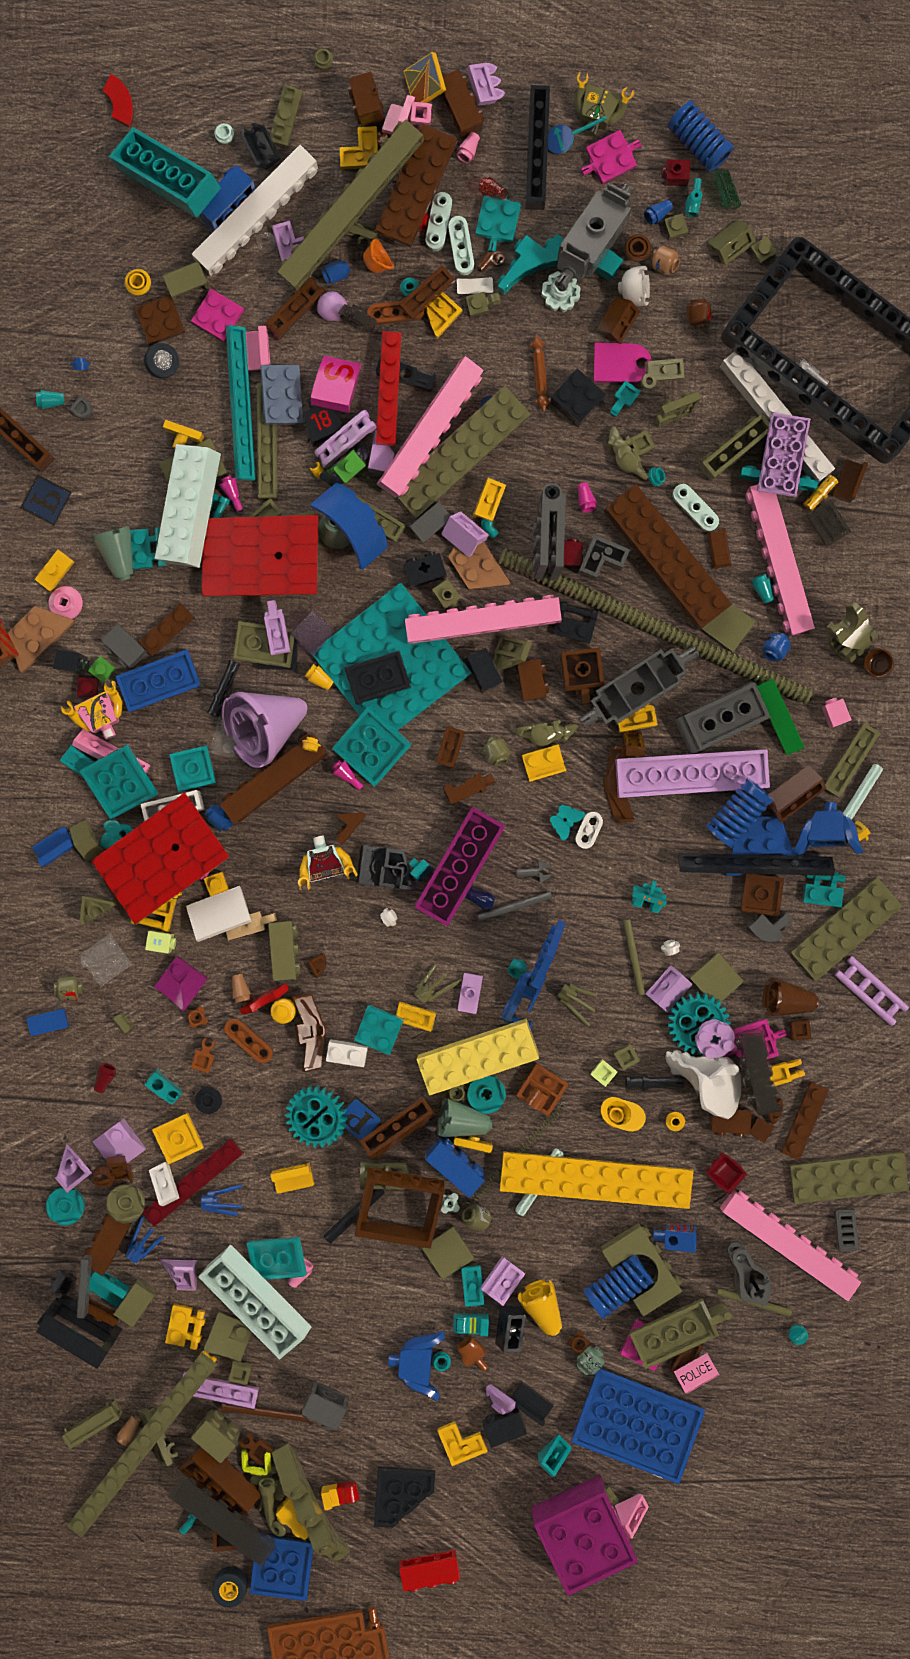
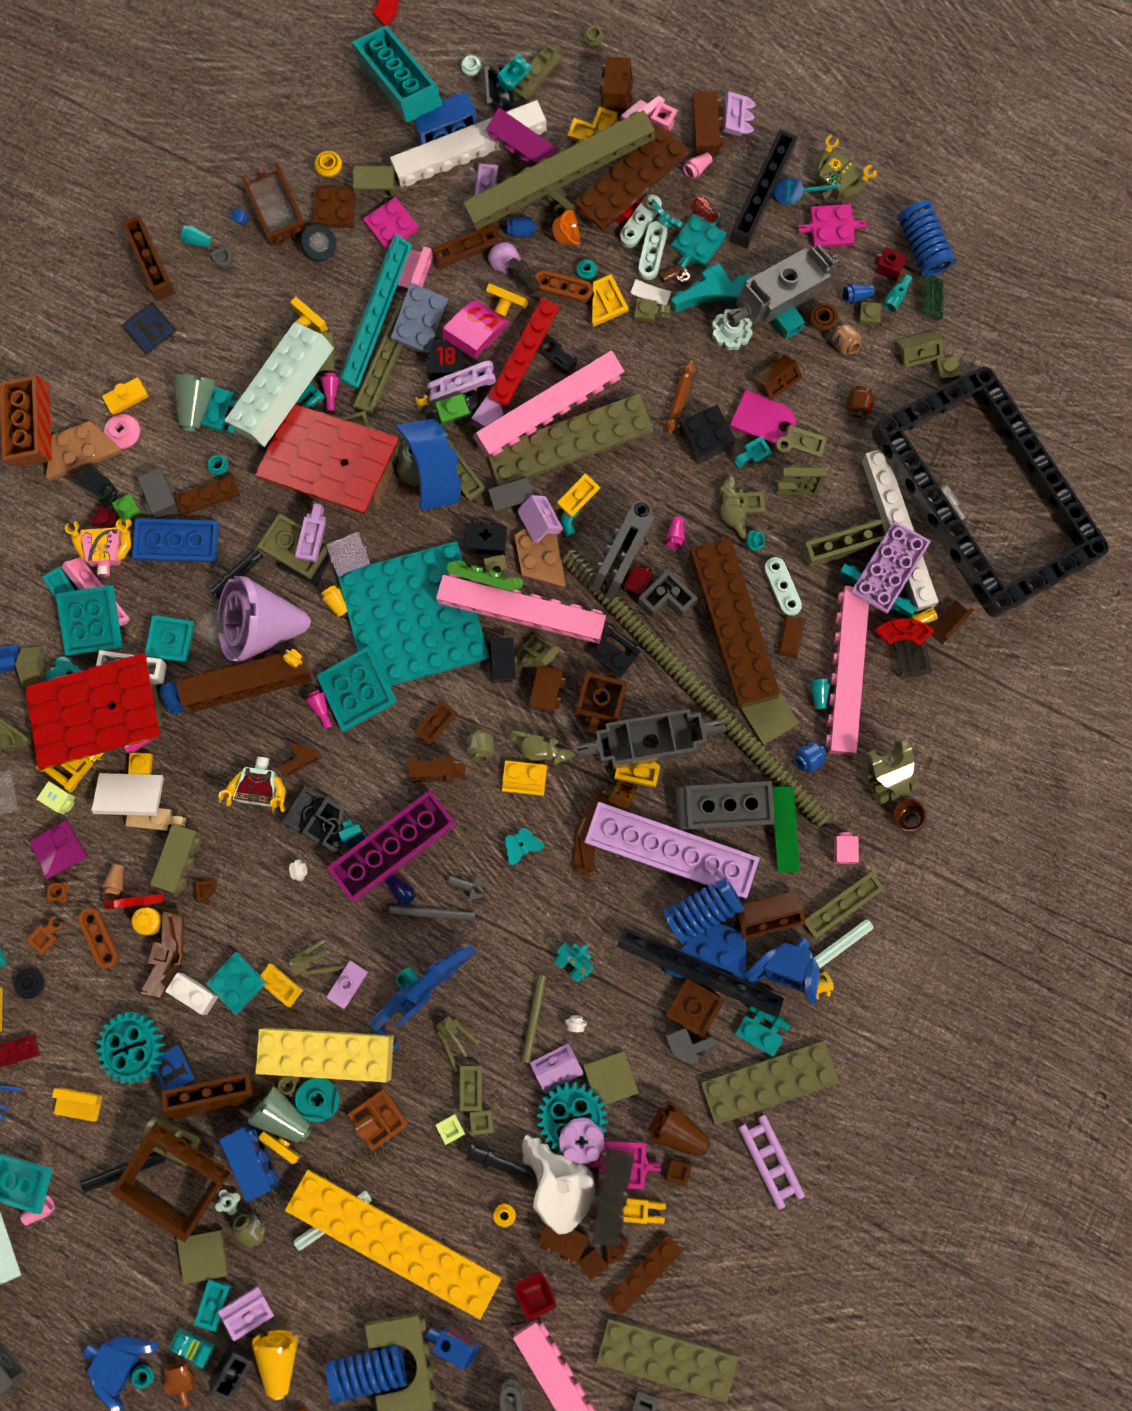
camera: 25 degrees right, 10 degrees down
(107, 341) = (275, 206): none -> door
(157, 599) = (217, 459): none -> teal plate
(268, 127) = (513, 73): none -> teal hips
(302, 190) = (519, 138): none -> magenta brick
(350, 345) = (505, 299): none -> yellow tile
(377, 677) = (392, 623): black tile -> none
(425, 79) = (681, 87): tile -> none
(427, 292) = (600, 278): reddish brown plate -> none
(447, 605) = (477, 574): none -> bright green plate
(461, 211) = (665, 218): none -> teal animal
(589, 830) = (541, 865): white plate -> none
(606, 1033) = (470, 1088): none -> olive plate
(622, 1114) = (450, 1182): yellow piece -> none
(635, 286) = (807, 351): white cylinder -> none
(815, 504) = (904, 629): none -> red tile

